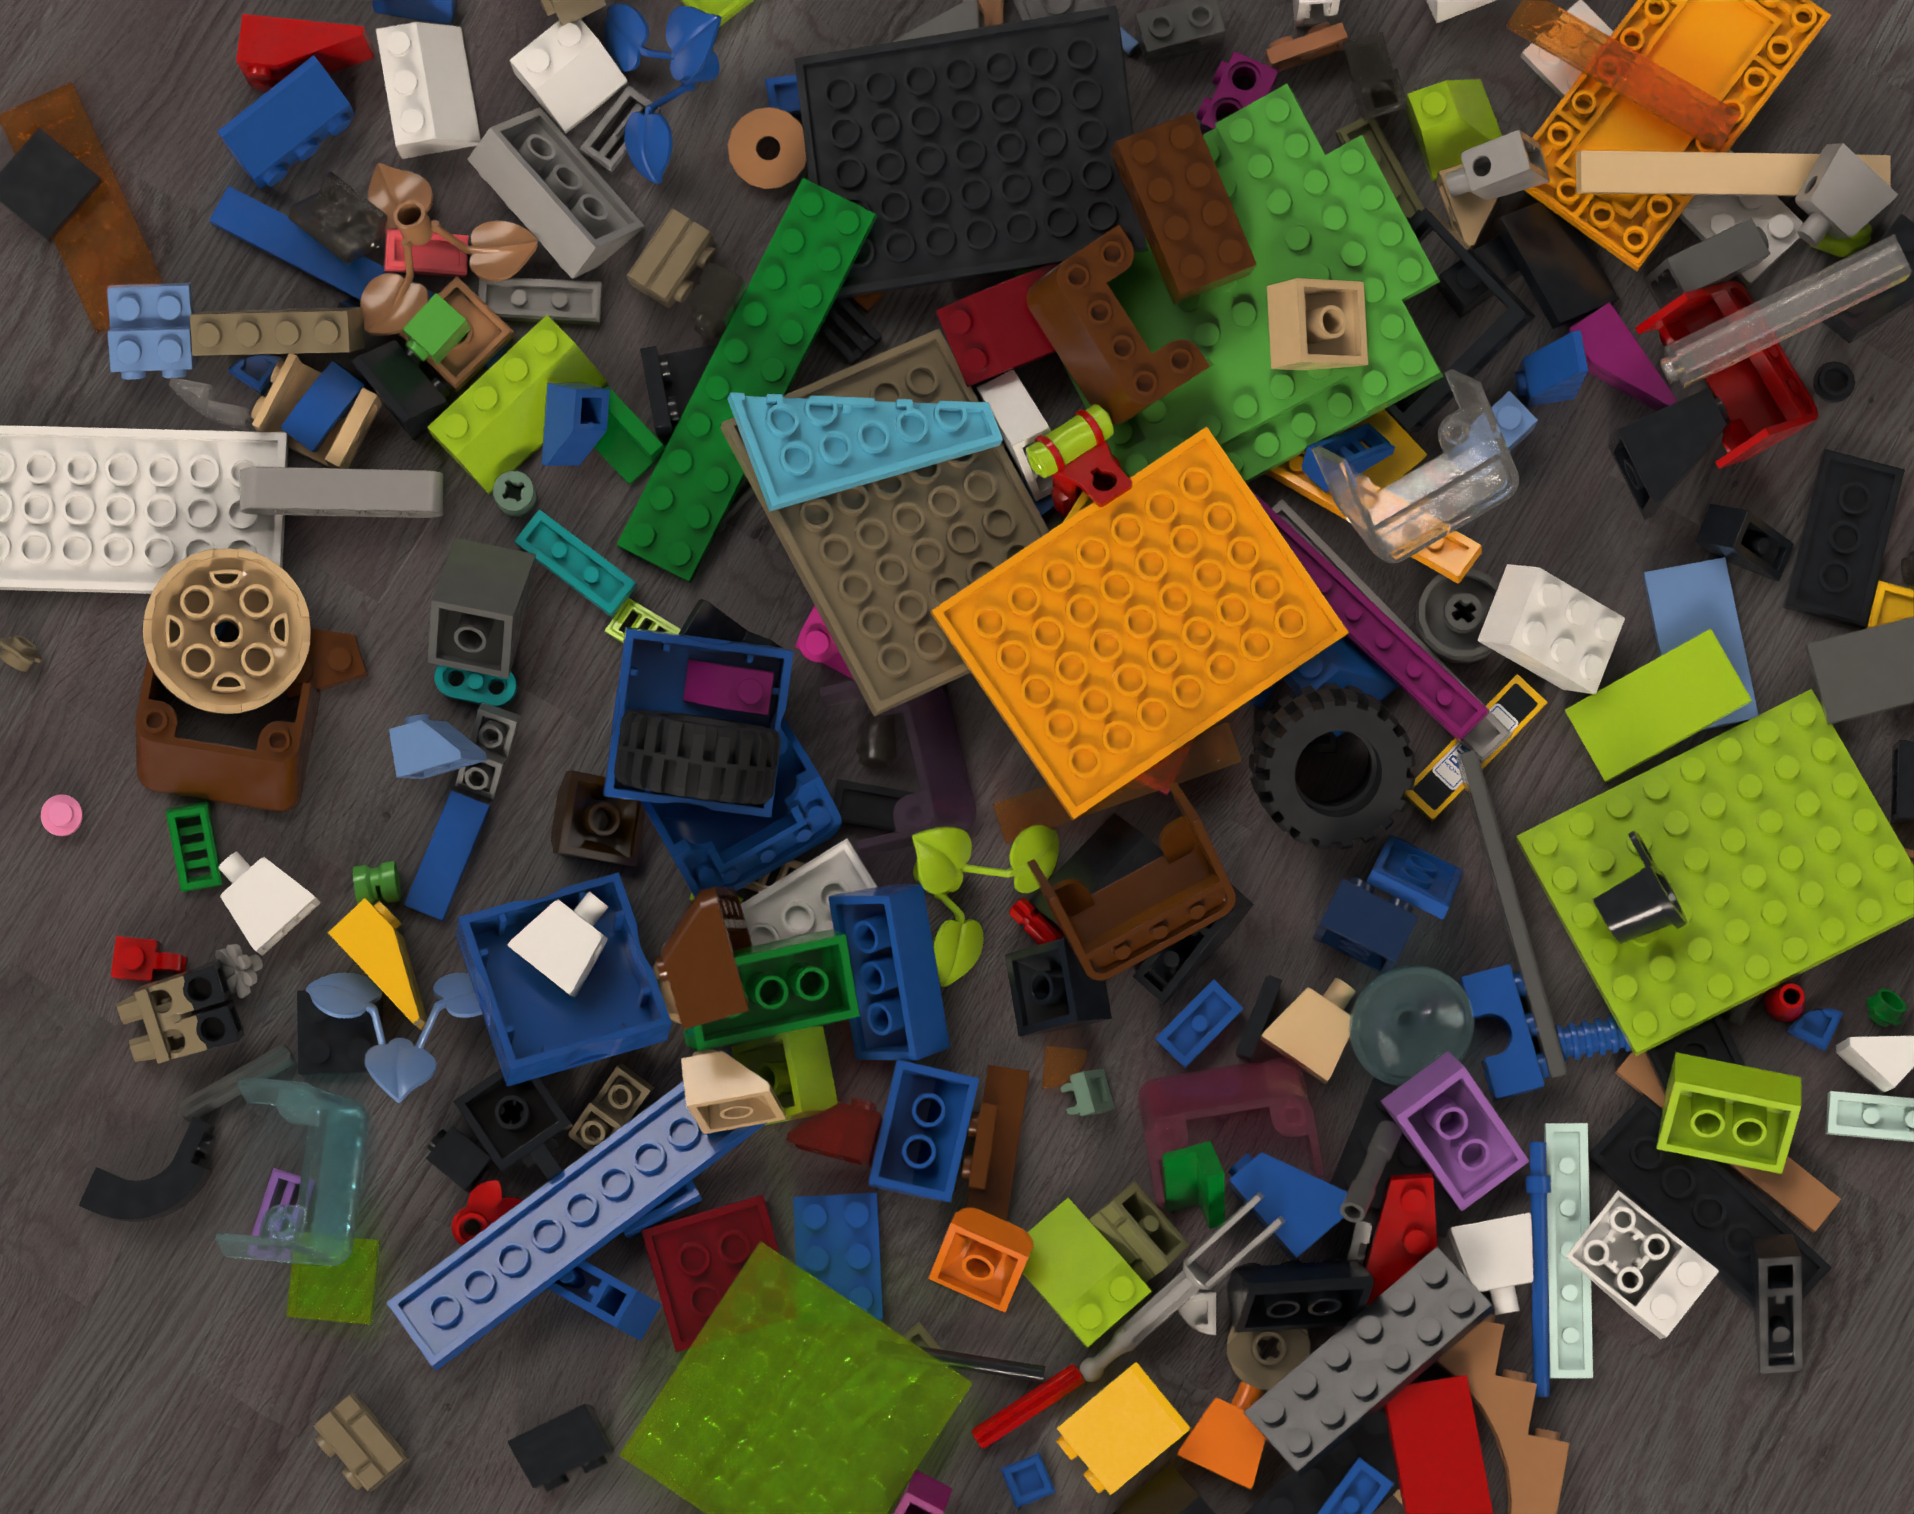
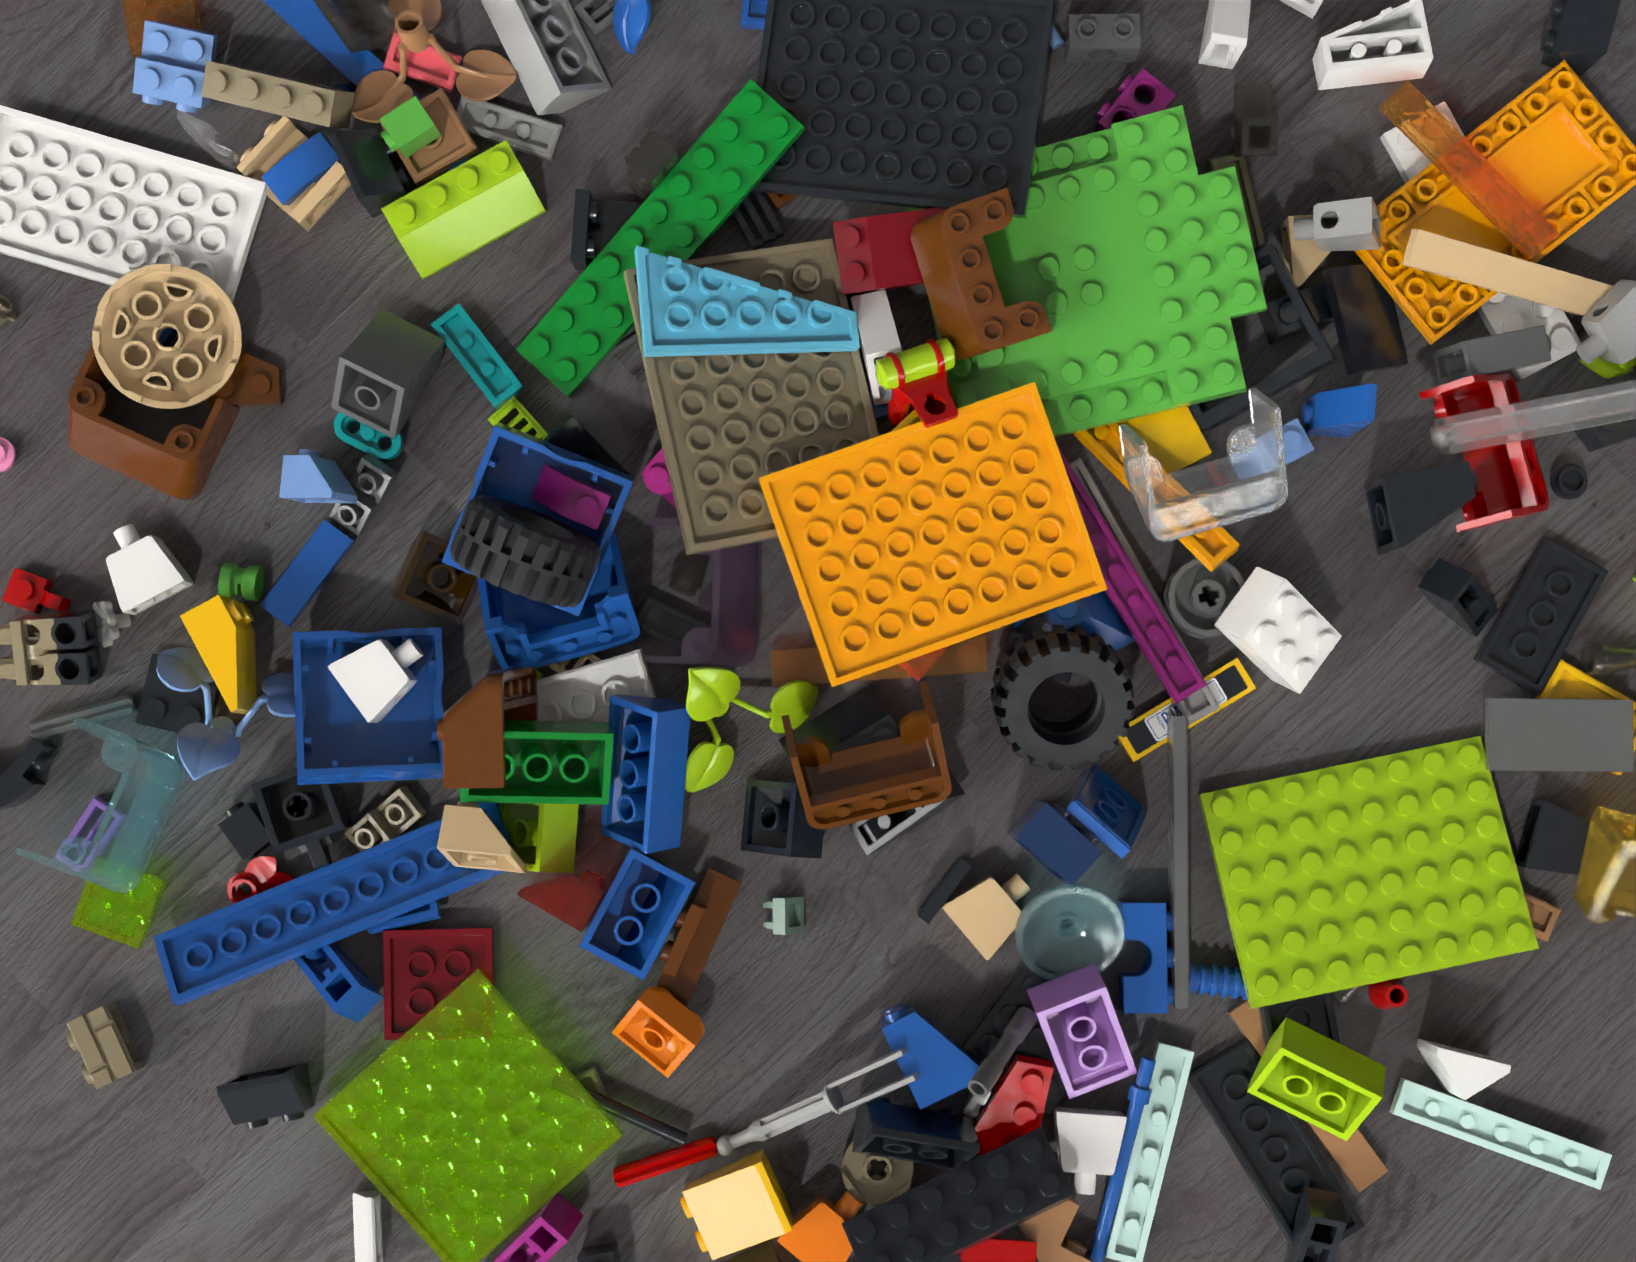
camera: 10 degrees right, 5 degrees up
(173, 816) = (114, 498): green slope -> none
(255, 371) = (254, 123): blue tile -> none
(341, 492) = (296, 244): light grey beam -> none
(519, 501) = (446, 291): sand green wheel -> none
(573, 422) = (505, 236): blue slope -> none
(628, 442) = (543, 260): green panel -> none
(672, 259) = (625, 121): dark tan brick -> none
(744, 142) = (710, 42): medium nougat tile -> none
(841, 1245) = (546, 988): blue plate -> none
(1027, 1480) = (649, 1222): blue tile -> none
(1035, 924) = (779, 761): red axle -> none
(1060, 1064) = (769, 884): clear orange tile -> none
(1081, 1273) = (739, 1065): lime slope -> none
(1139, 1231) = (796, 1044): olive brick -> none
(1183, 208) = (1065, 188): reddish brown brick -> none
(1194, 1178) = (856, 1012): green panel -> none
(1199, 1023) = (892, 881): blue plate -> none
(1200, 1312) = (830, 1125): white tile -> none
(1270, 1083) = (898, 946): clear pink windscreen -> none
(1317, 324) = (1152, 319): tan slope -> none
(1319, 42) = (1215, 80): nougat plate -> none
(1349, 447) = (1148, 429): blue slope -> none
(1449, 121) = (1306, 175): lime slope -> none
(1619, 360) = (1398, 417): magenta slope -> none
(1640, 902) = (1292, 887): black container -> none
(1641, 1265) = (1208, 1186): white slope -> none
(1658, 705) = (1349, 716): lime tile -> none
(1691, 601) = (1396, 674): medium blue tile -> none
(1816, 1027) = (1406, 1020): blue tile -> none
(1886, 1008) = (1469, 1021): green plate -> none

